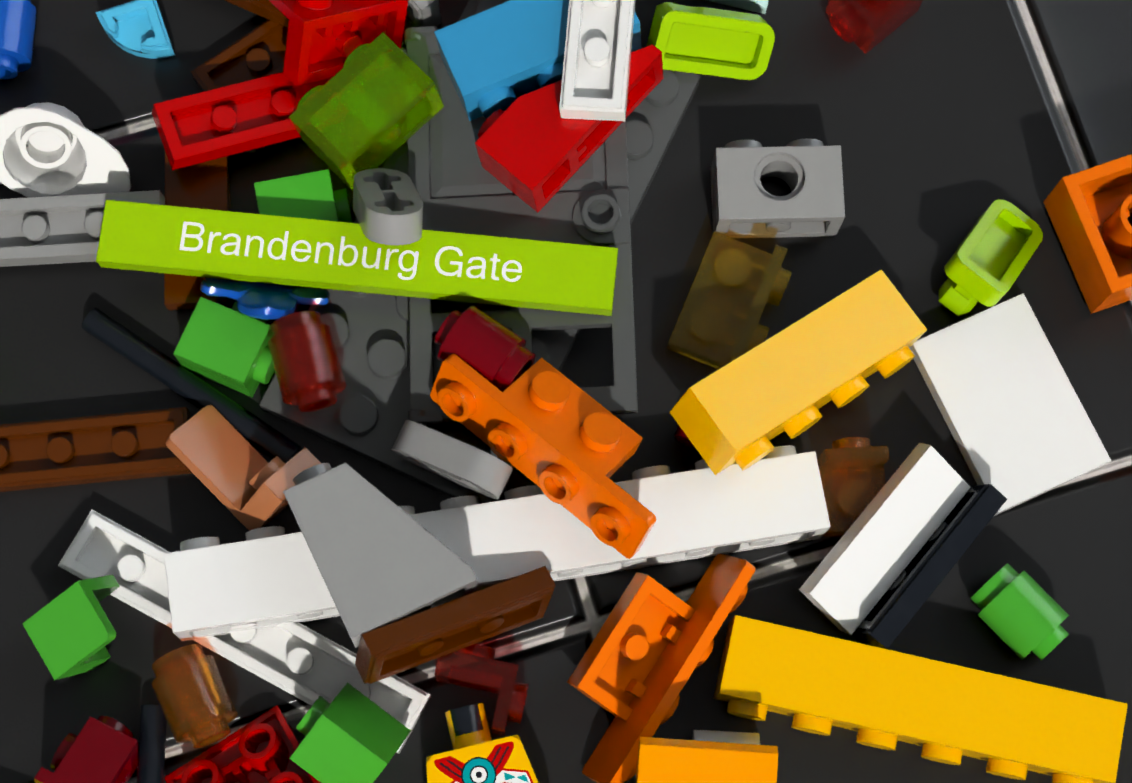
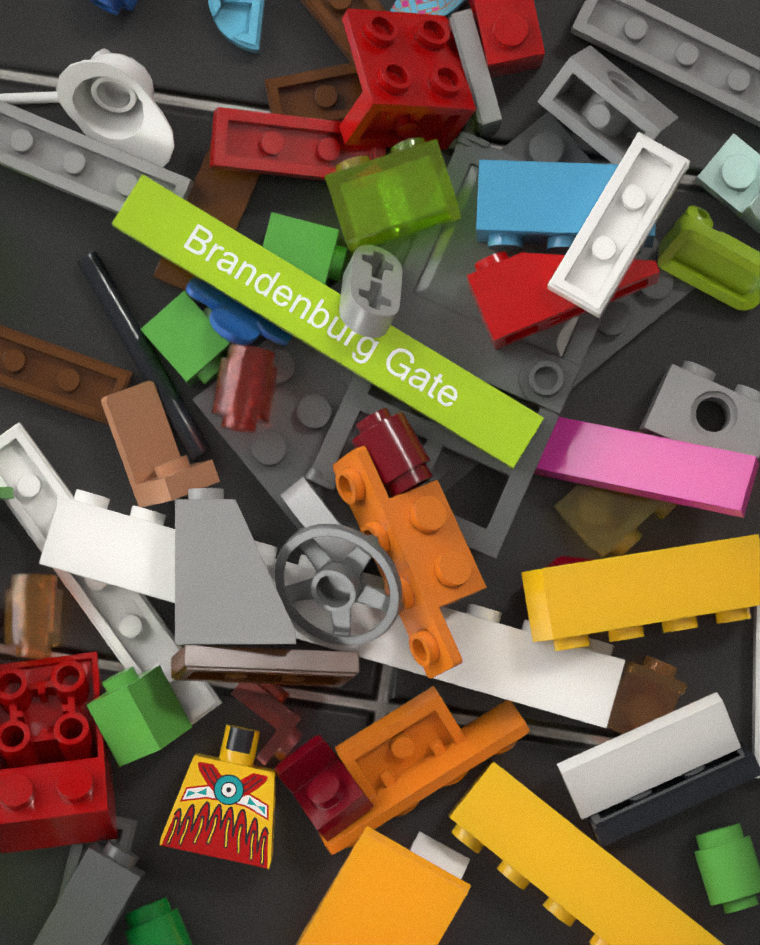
camera: 25 degrees right, 10 degrees up
(492, 500) = (339, 583): none -> dark grey wheel
(575, 727) = (323, 787): none -> dark red bracket
(743, 253) = (649, 466): none -> tile

